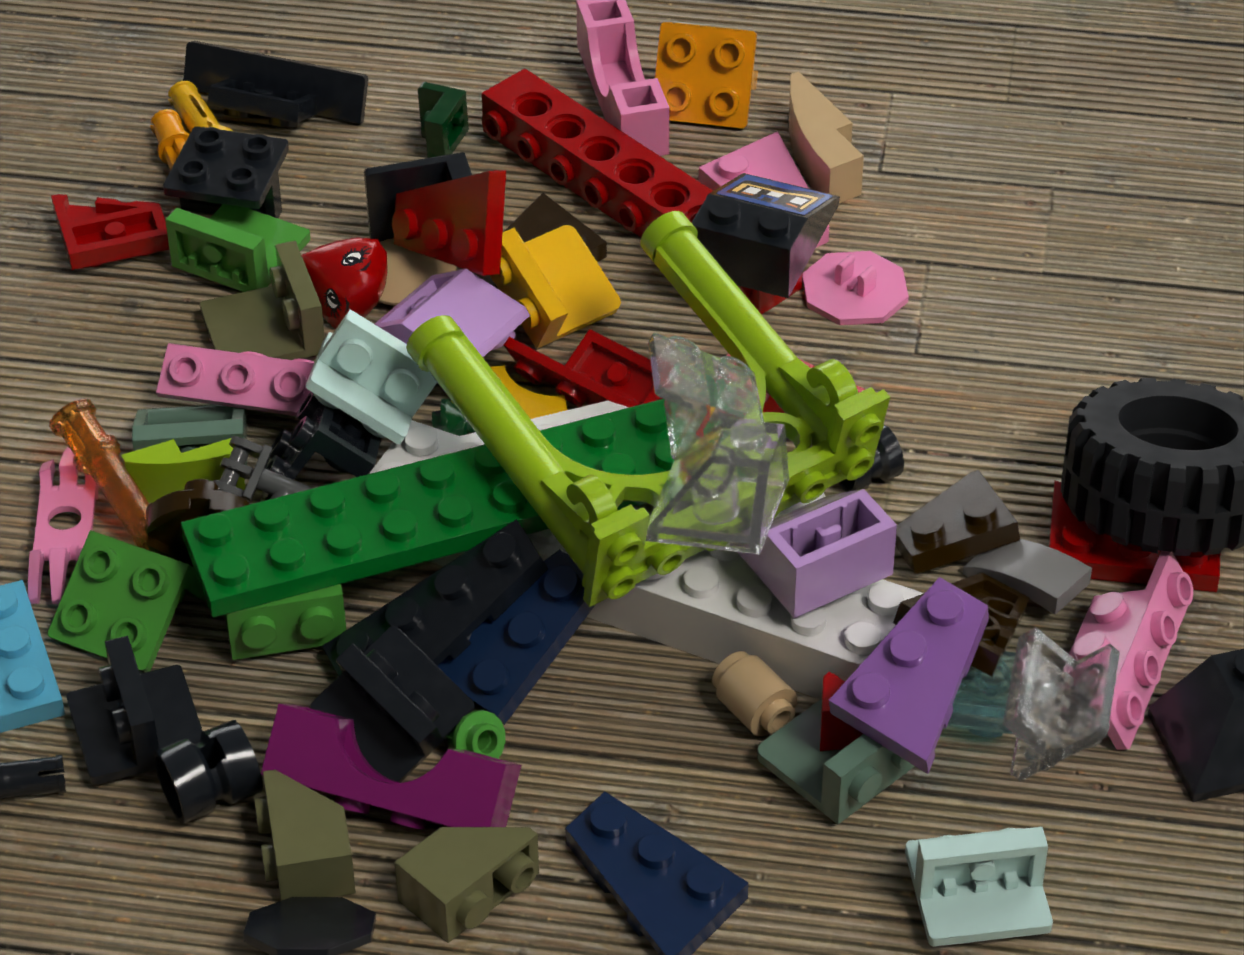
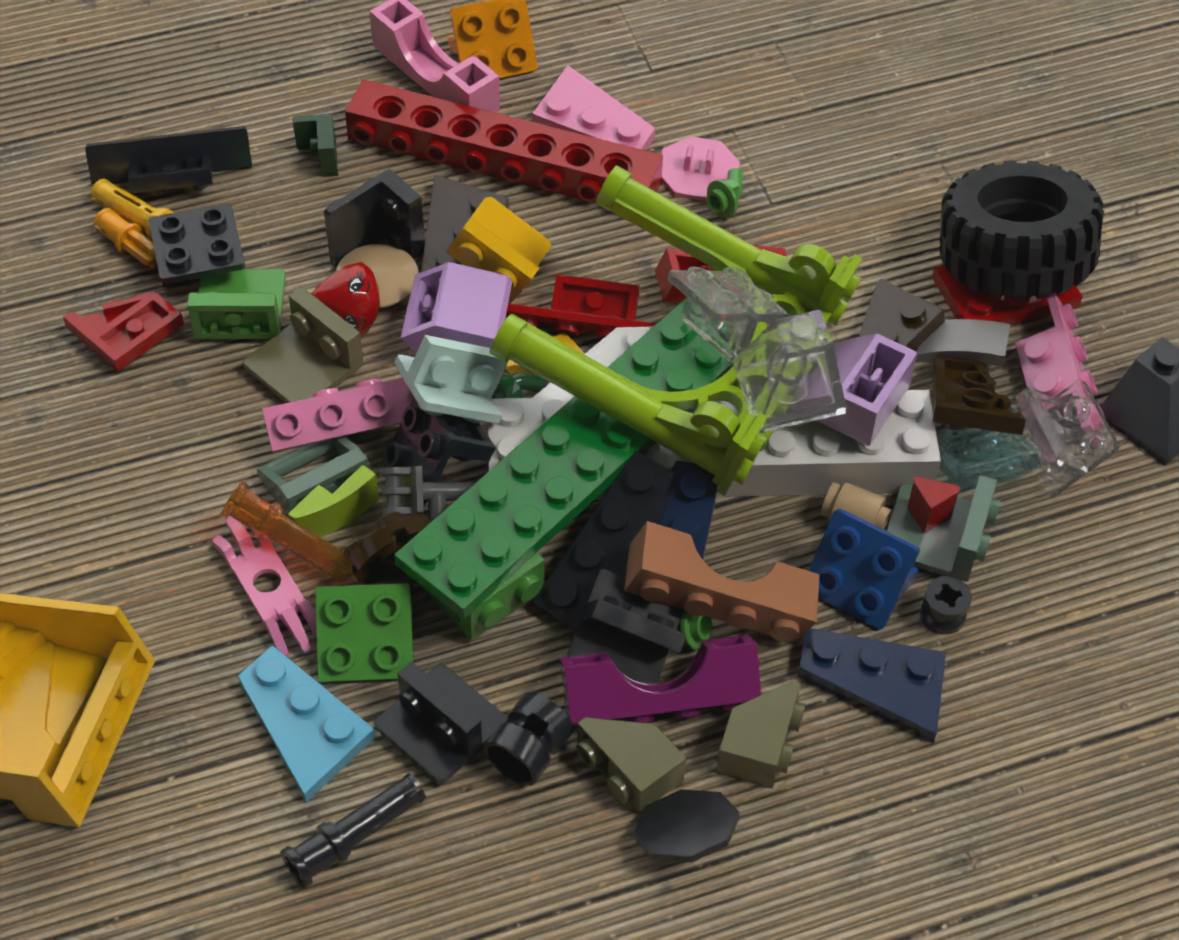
camera: 30 degrees left, 10 degrees up
(455, 221) = (418, 228): red wing -> none
(574, 744) = (670, 571): none -> nougat arch
(709, 753) = (863, 568): none -> blue bracket
(763, 230) = (639, 142): black slope -> none
(796, 847) = (939, 615): none -> black wheel
(823, 141) = (605, 61): tan slope -> none
(857, 318) = (724, 195): none -> bright green plate
(912, 677) = (983, 457): medium lavender wing -> none
(981, 885) = (1089, 584): light aqua bracket -> none

